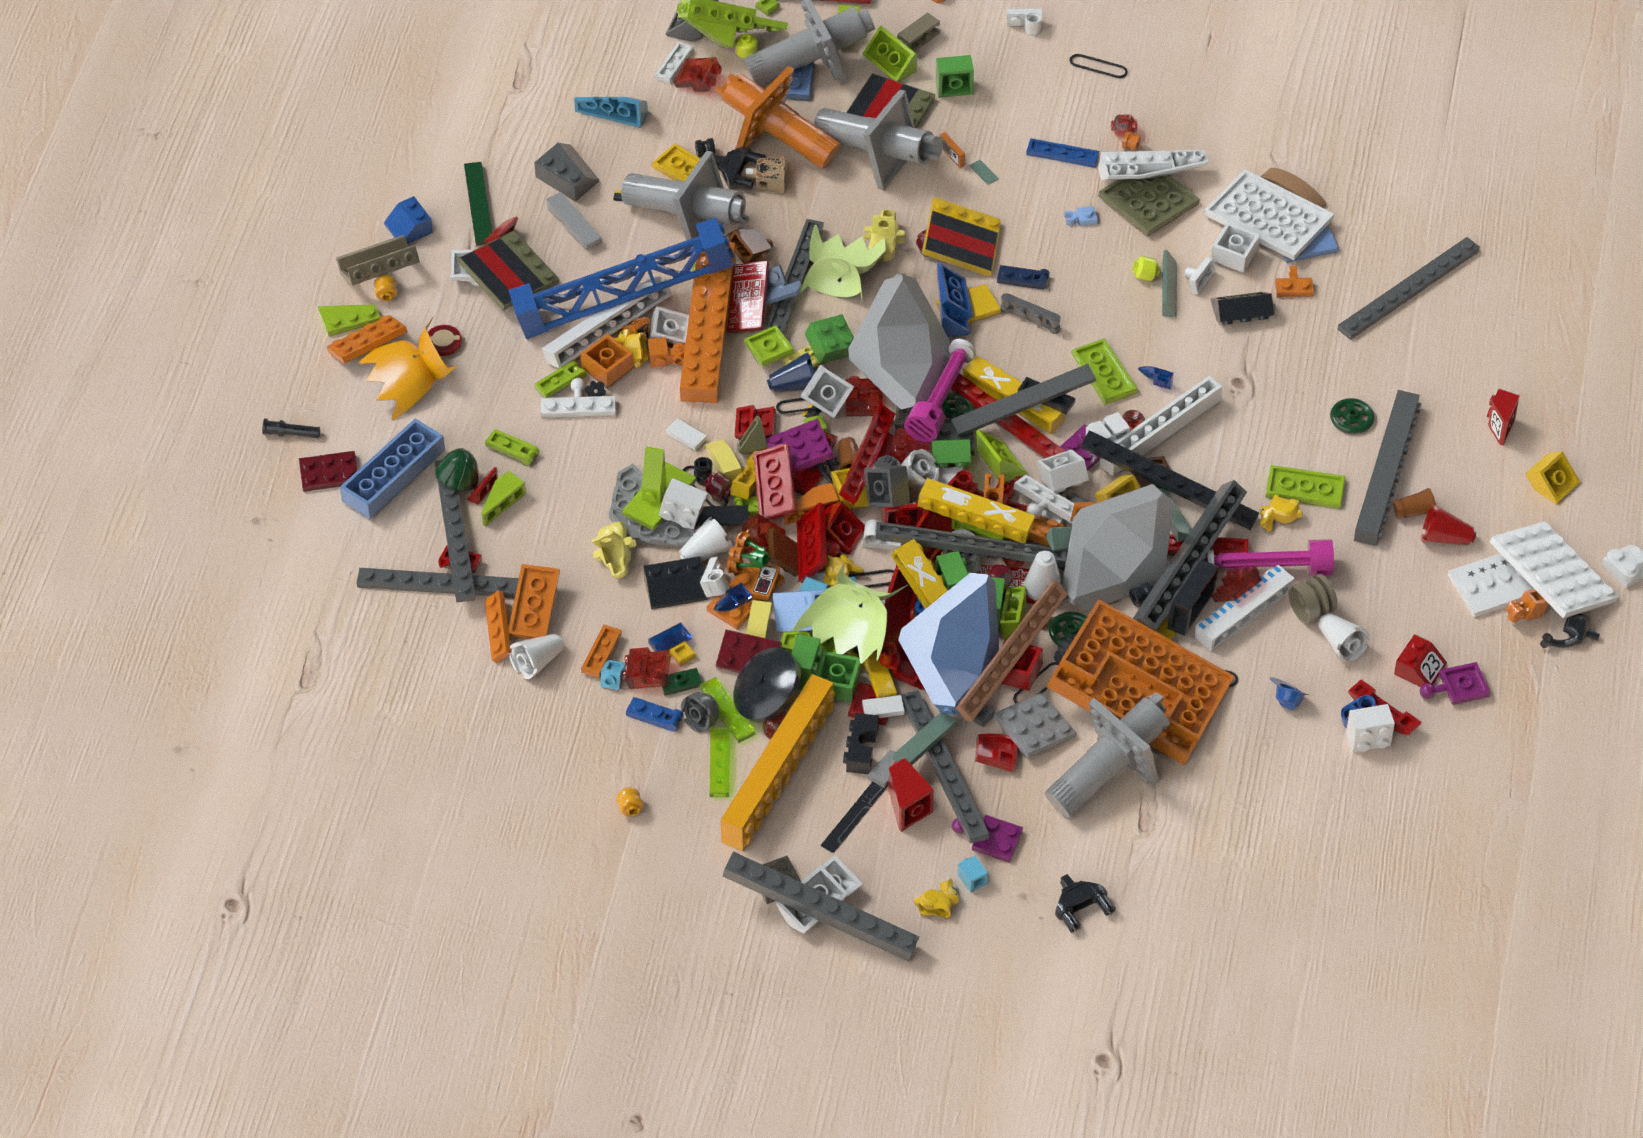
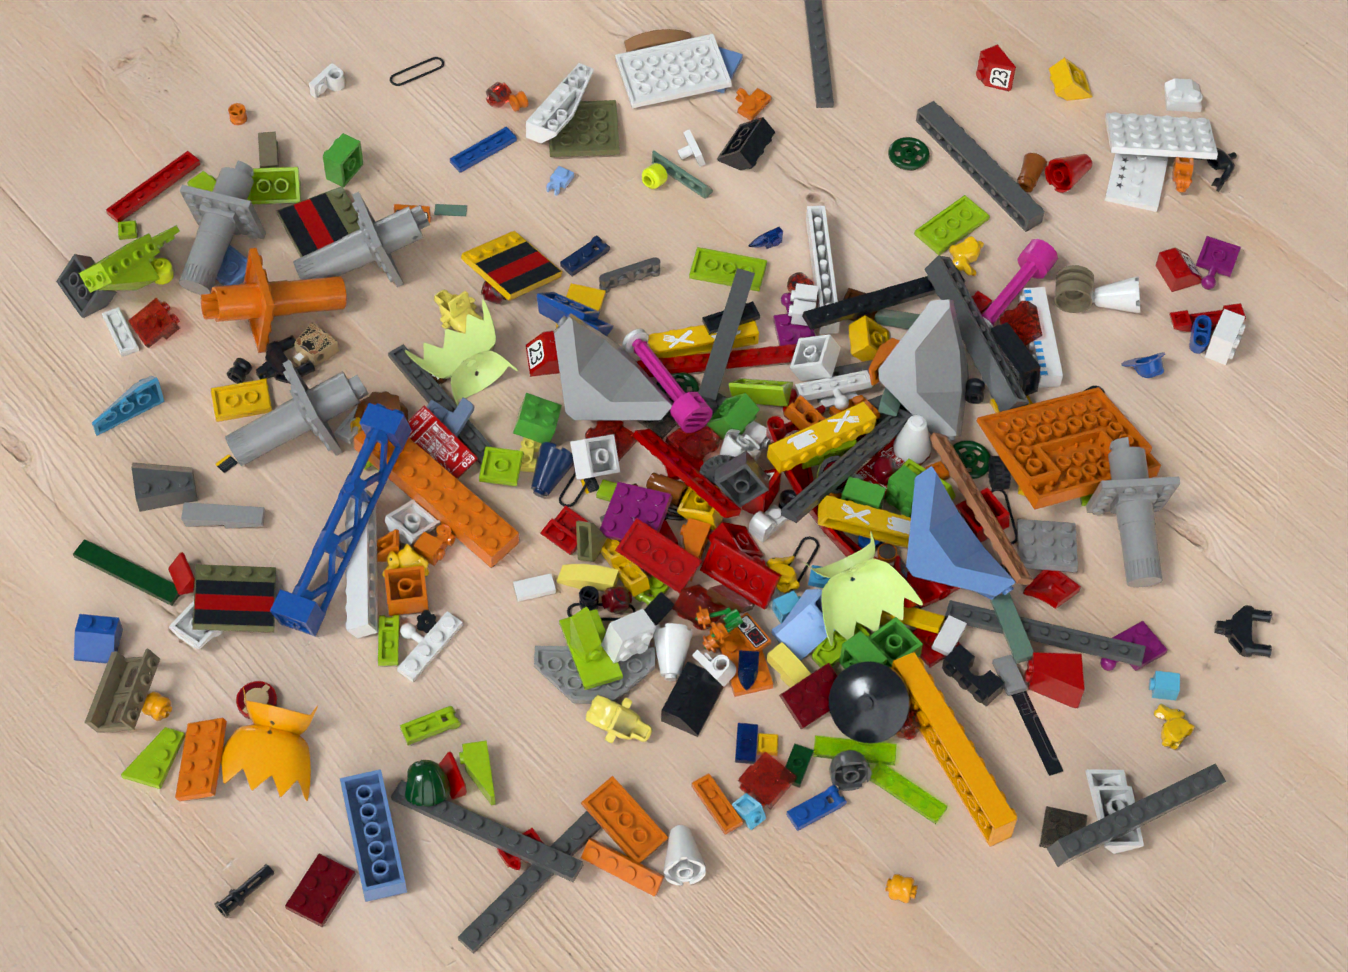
camera: 55 degrees left, 5 degrees up
(1235, 247) = (688, 109): white brick -> none

